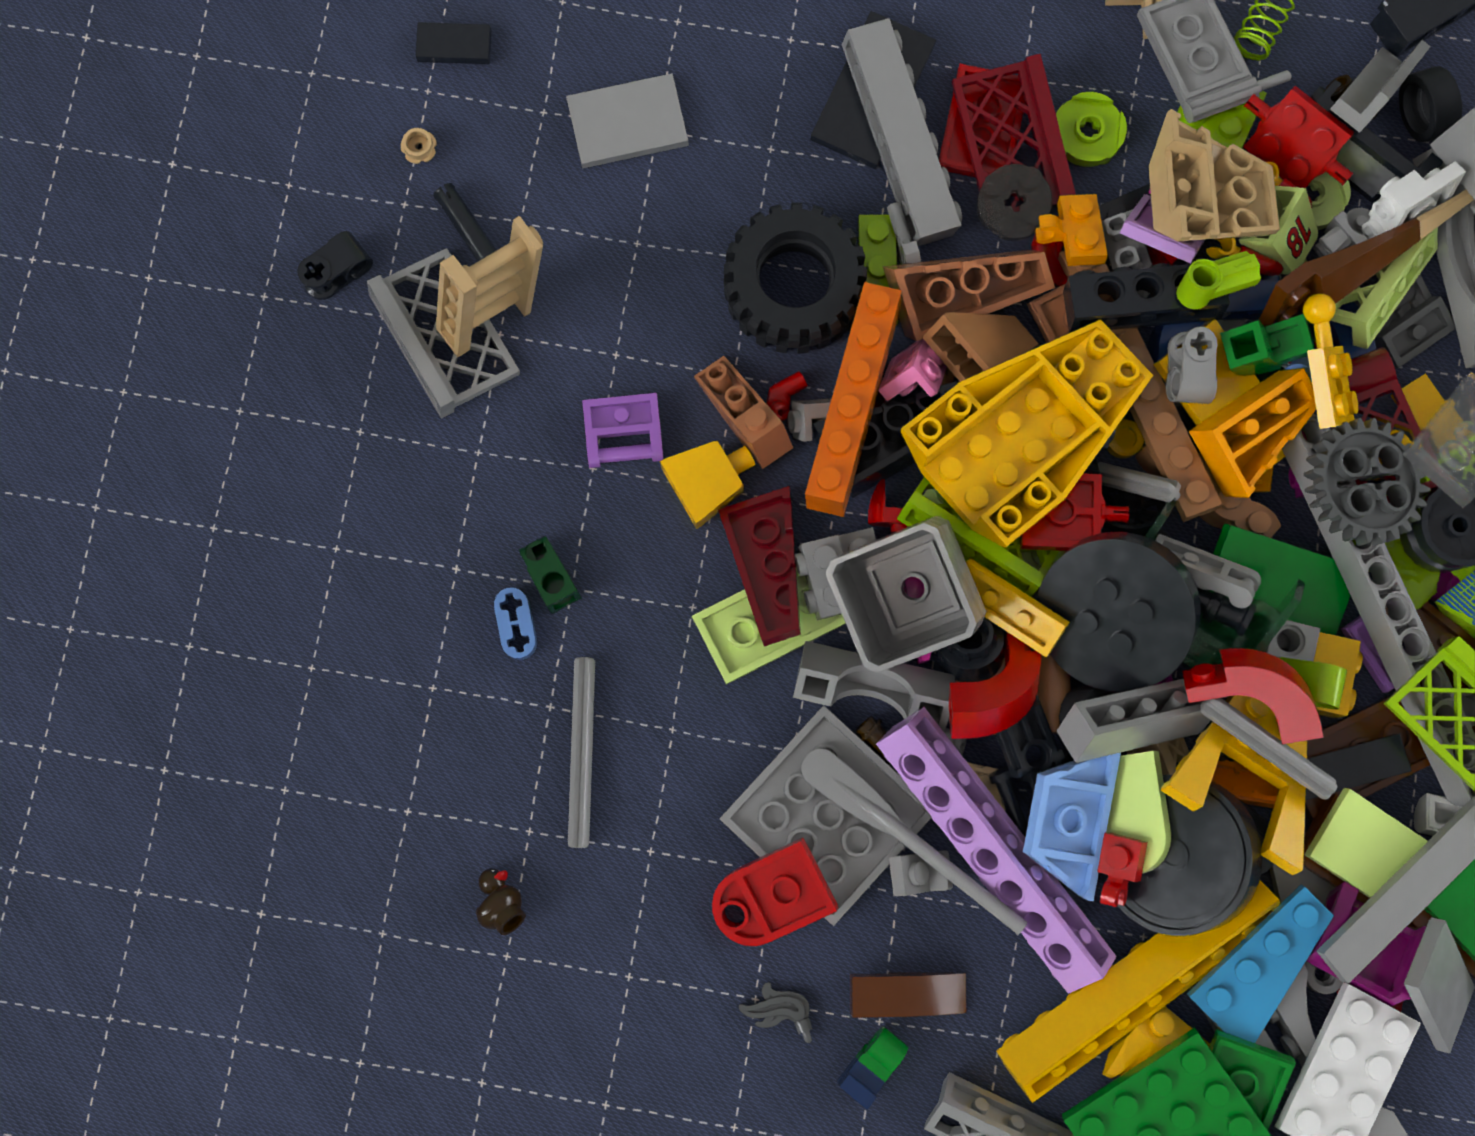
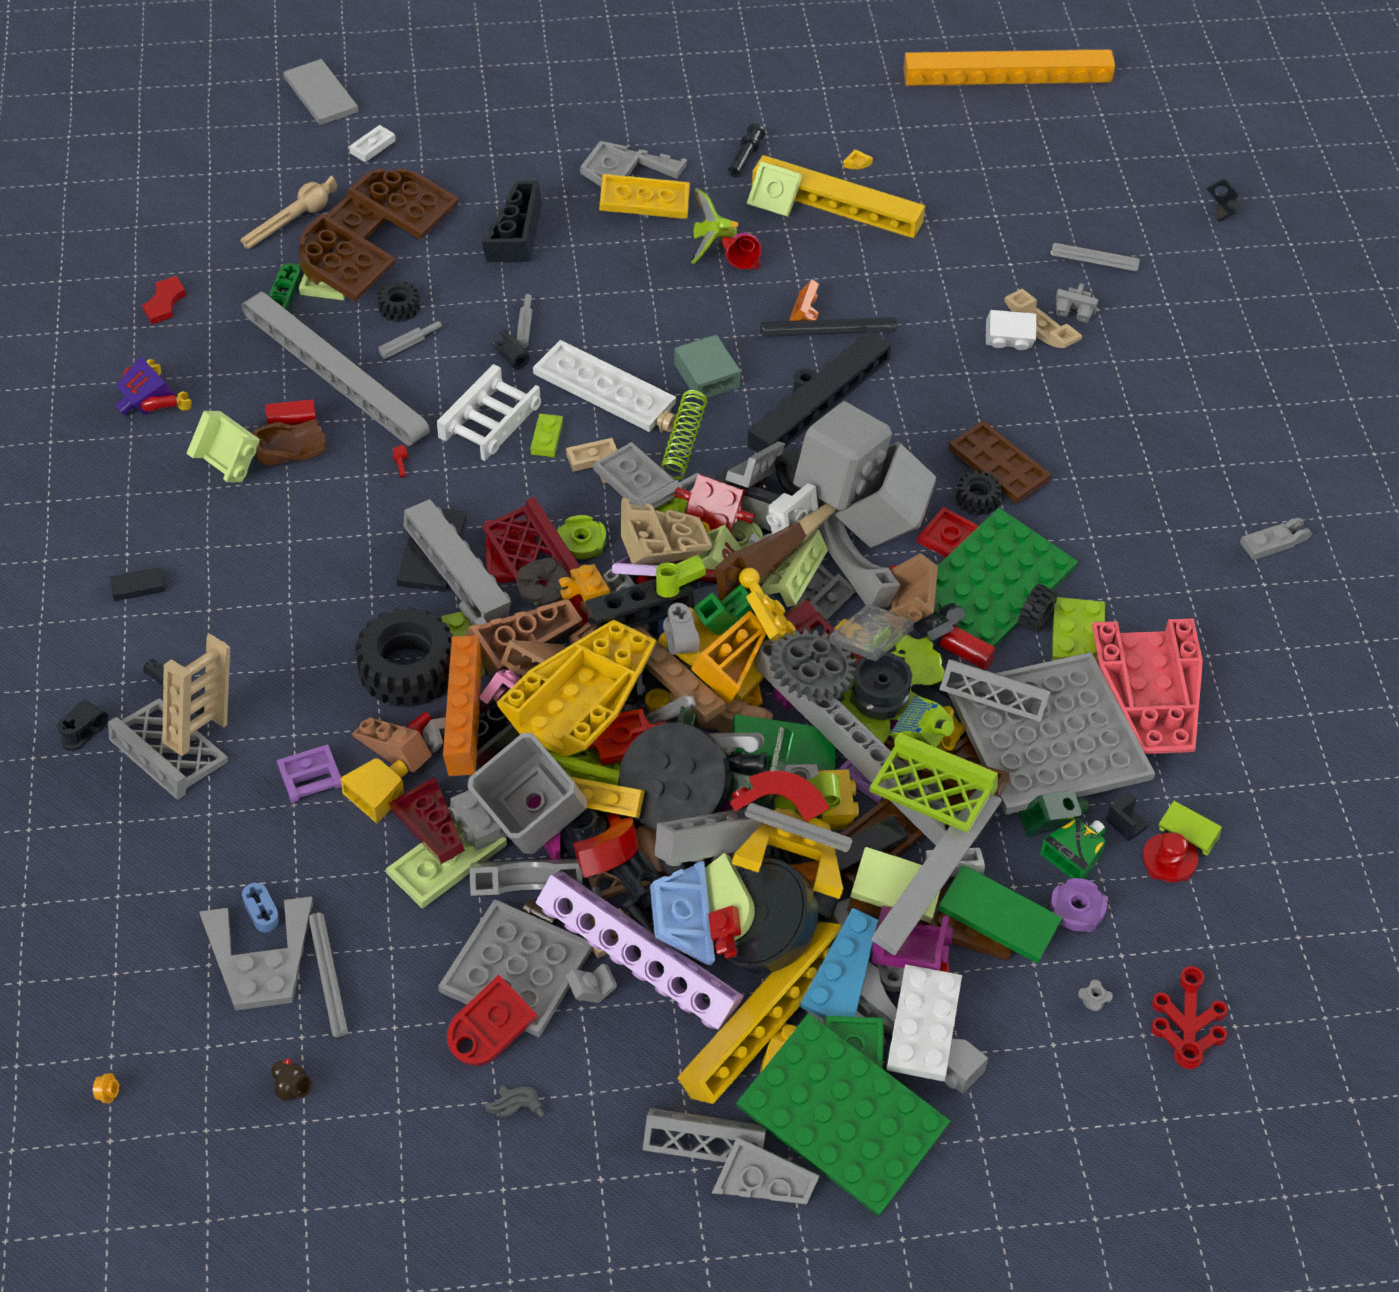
camera: 15 degrees left, 30 degrees down
(266, 845) = (105, 1088): none -> light orange plate
(412, 139) = (125, 644): tan plate -> none
(495, 729) = (262, 976): none -> light grey wing
(549, 575) = (279, 870): dark green leg -> none
(627, 120) = (268, 600): light grey tile -> none
(852, 793) = (526, 943): light grey piece -> none
(872, 1067) = (592, 1117): leg -> none
(907, 994) = (603, 1062): reddish brown slope -> none
(1439, 984) = (967, 949): light grey tile -> none

